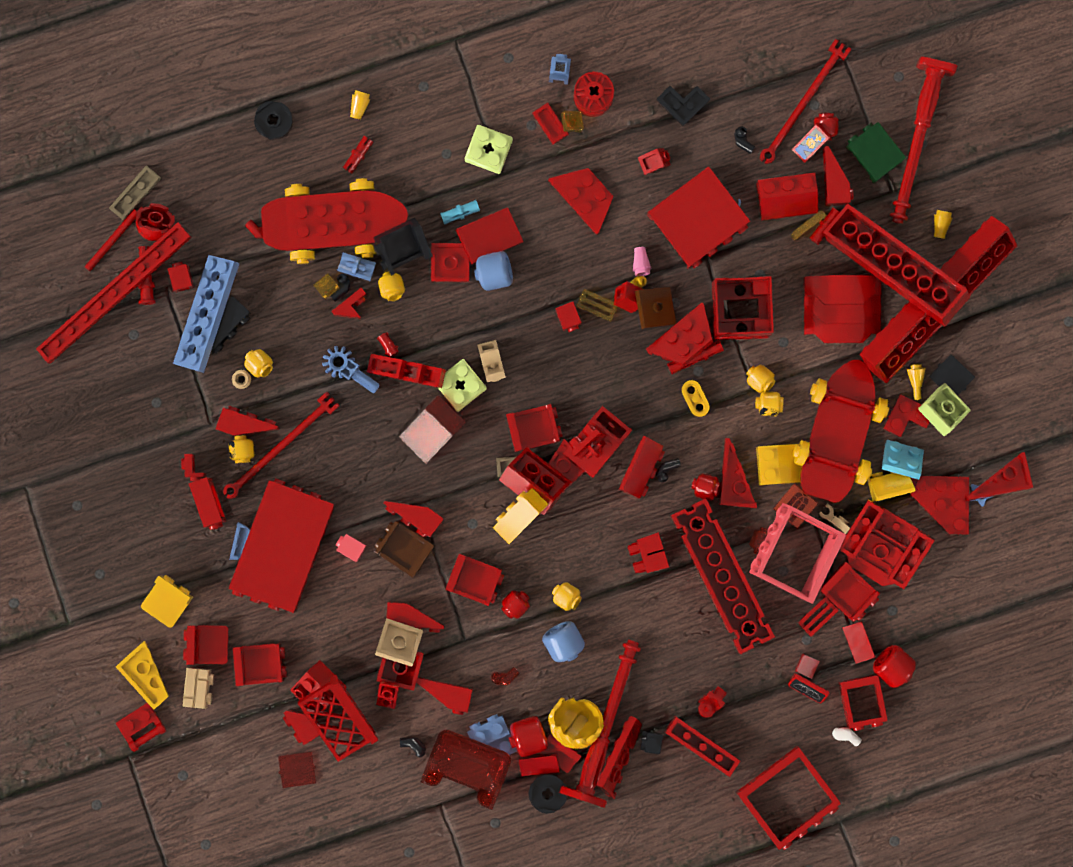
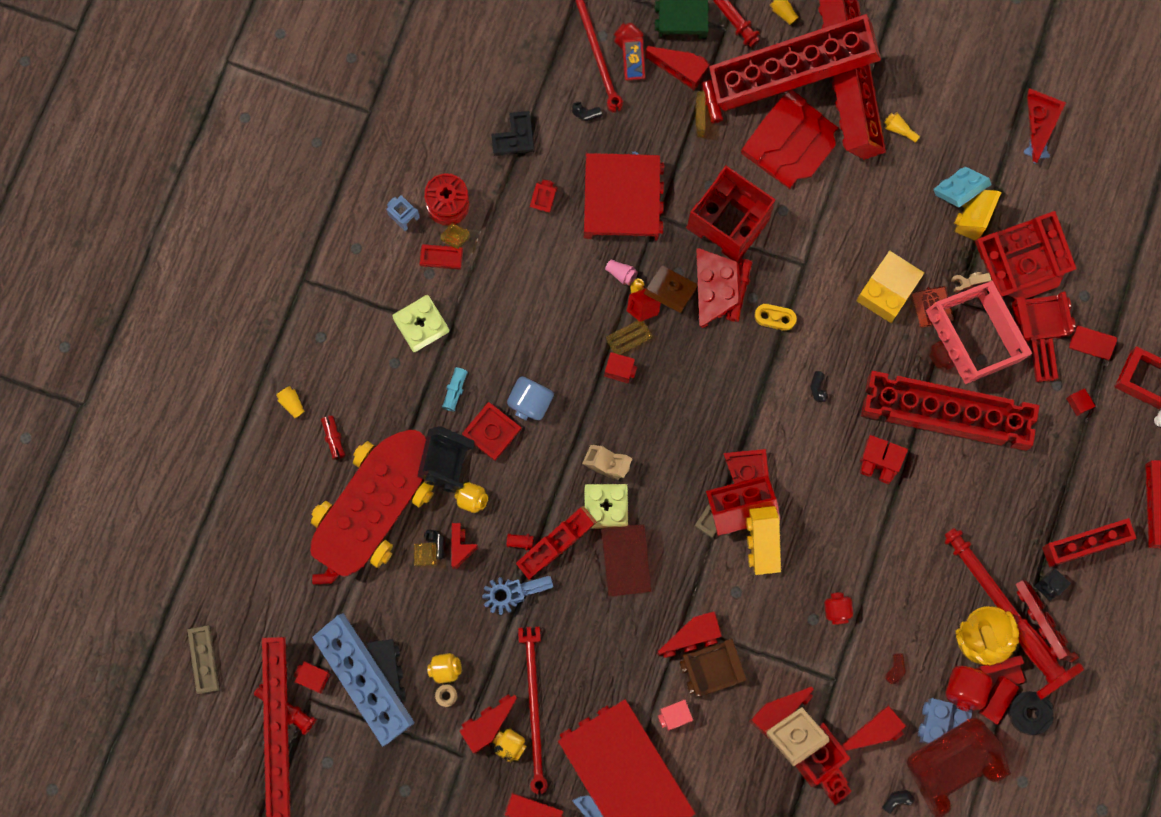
camera: 55 degrees left, 10 degrees down
(112, 239) = (227, 714): red bar -> none
(154, 221) = (243, 661): red cylinder -> none
(188, 465) = (485, 805): red bracket -> none
(283, 124) = (232, 494): black plate -> none
(356, 266) = (430, 513): medium blue hips -> none
(474, 580) = (789, 628): red panel -> none
(489, 235) = (495, 379): red tile -> none
(534, 427) = (693, 471): red panel -> none
(563, 642) = (905, 591): medium blue head -> none
(566, 596) = (865, 558): yellow head -> none
(585, 196) = (527, 275): red wing -> none
(589, 445) = (745, 422): red hips -> none
(616, 434) = (750, 424): red slope -> none
(642, 468) = (800, 406): red slope -> none
(706, 486) = (859, 365): red head -> none
(711, 702) = (1056, 503): red hips -> none
(734, 487) = (876, 342): red wing -> none
(760, 378) = (800, 250): yellow head -> none
(769, 403) = (828, 259): yellow head -> none
(787, 196) = (662, 111): red slope -> none
(808, 688) = (1102, 415): slope -> none
(839, 433) = (898, 221): red piece -> none
(894, 666) = (1137, 327): red head -> none
(902, 412) = (920, 157): red plate -> none
(944, 409) = (945, 122): yellowish green brick -> none
(944, 501) = (1024, 181): red plate -> none
(952, 374) = (919, 99): black piece -> none

